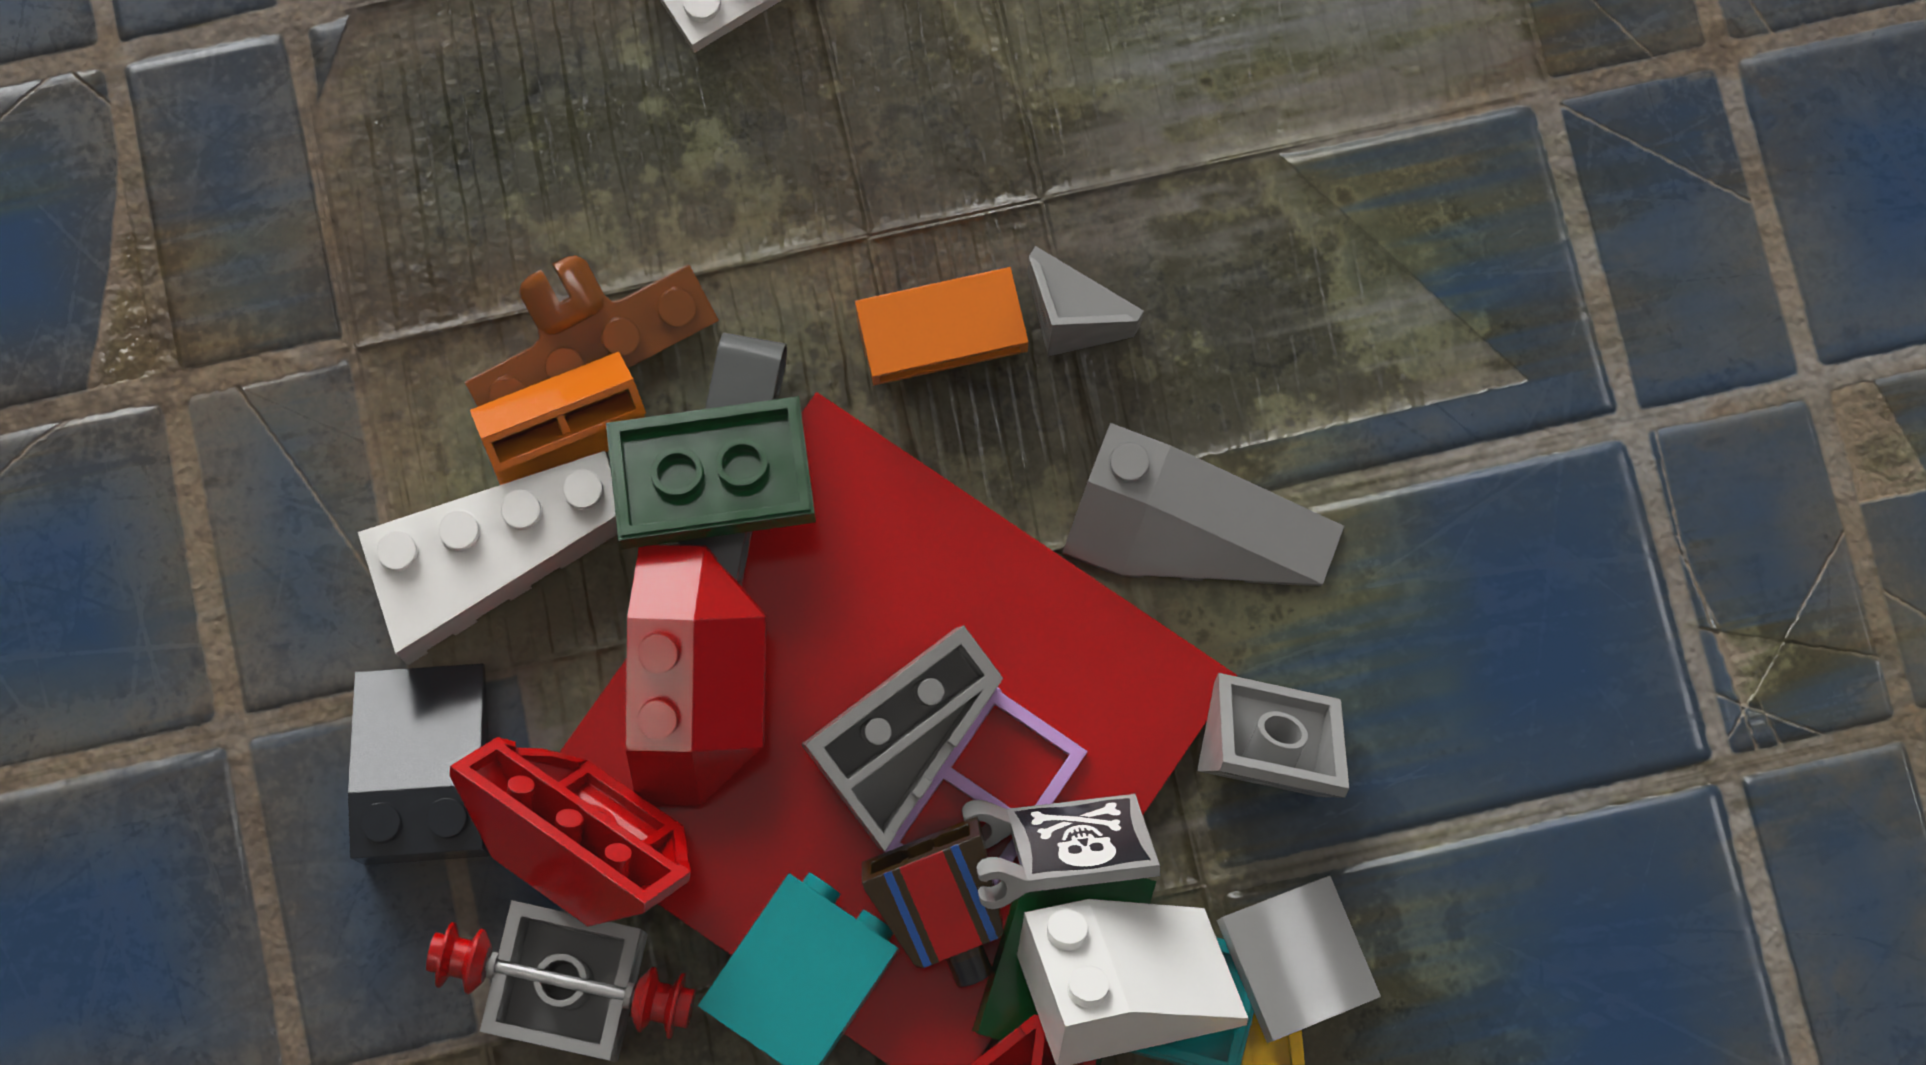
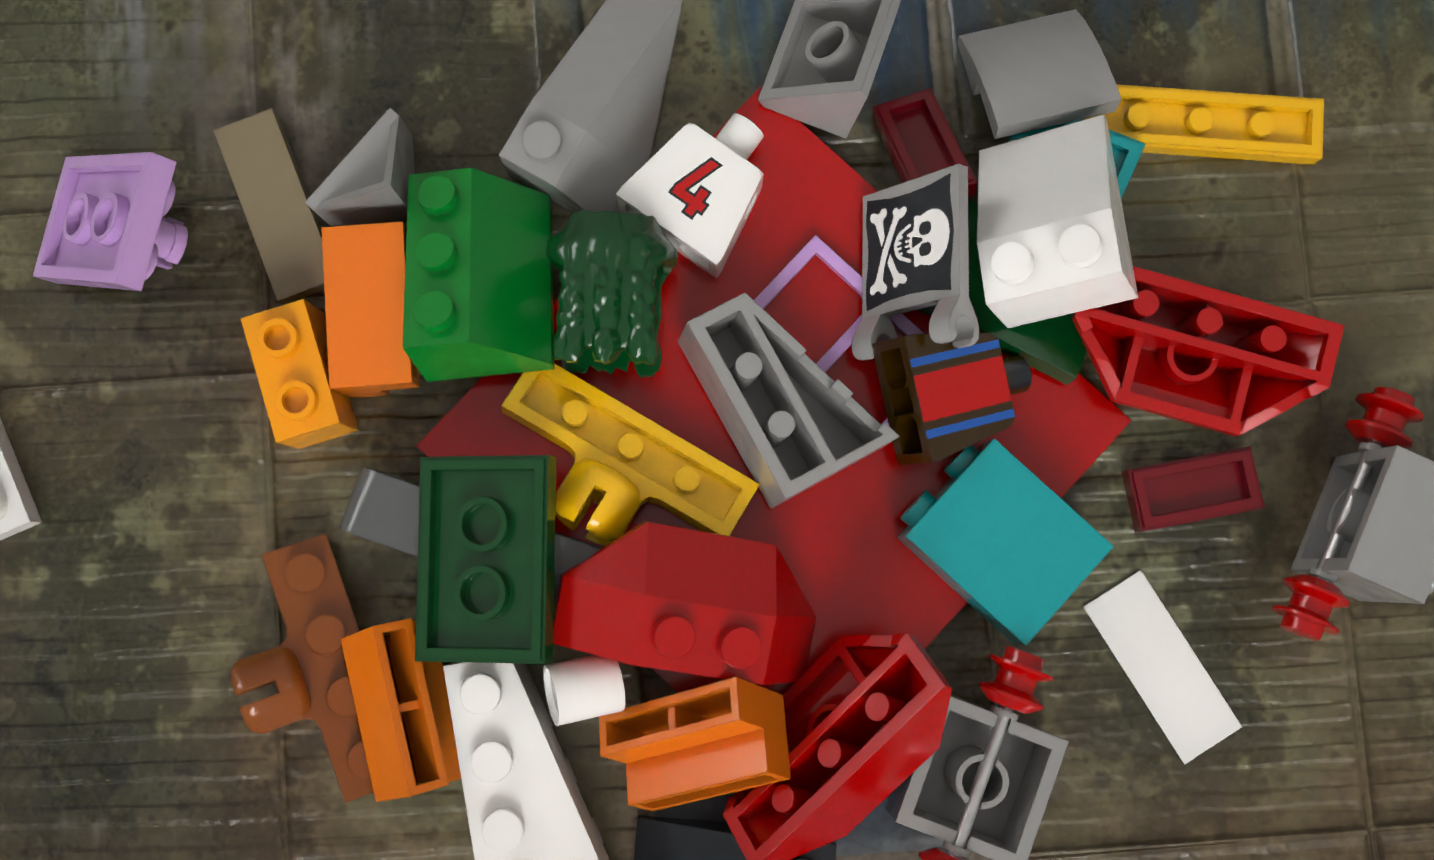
camera: 85 degrees left, 5 degrees up
(562, 701) = (698, 743): none -> orange piece
(599, 583) = (583, 689): none -> white axle
(828, 591) = (623, 460): none -> yellow plate
(867, 264) = (293, 375): none -> light orange brick
(984, 68) = (111, 222): none -> lavender plate
(987, 551) = (610, 291): none -> dark green piece
(989, 423) = (477, 276): none -> green slope
(1039, 215) = (274, 203): none -> dark tan tile
(1108, 625) = (699, 190): none -> white torso
(1201, 849) = (919, 137): none -> dark red tile

